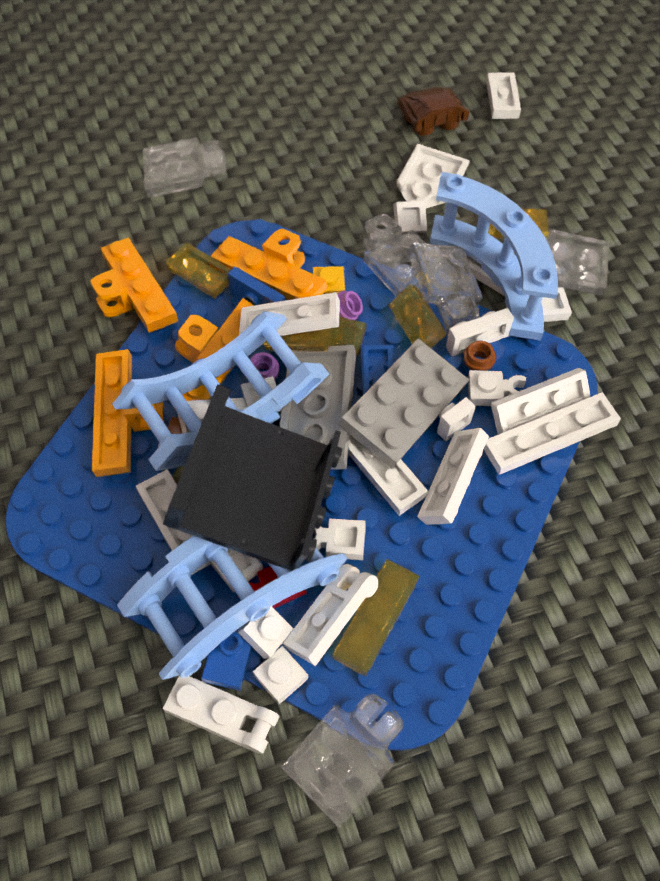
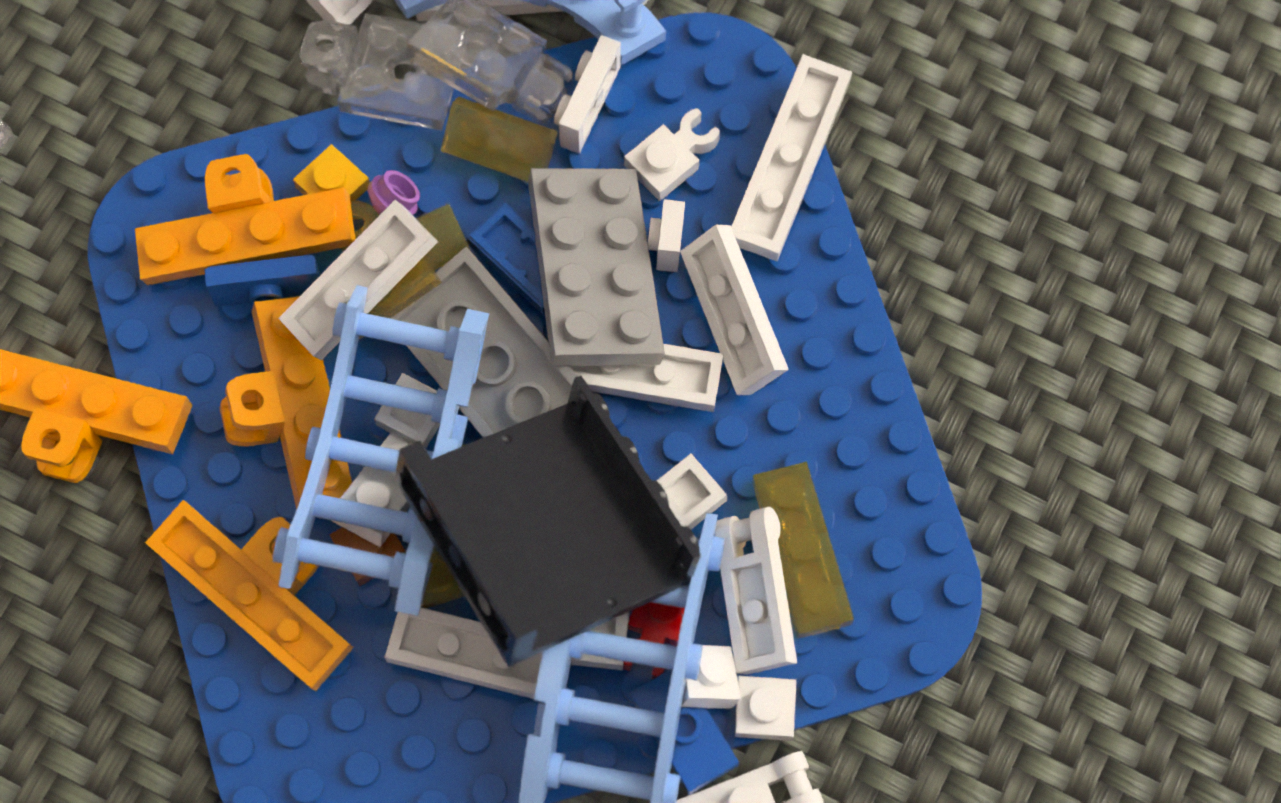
camera: 45 degrees left, 10 degrees up
(199, 270) = (149, 310): clear yellow plate -> none
(266, 361) = (377, 358): medium lavender plate -> none
(345, 757) = (914, 724): clear plate -> none
(479, 349) = (617, 113): dark orange plate -> none
(540, 400) = (744, 127): white plate -> none

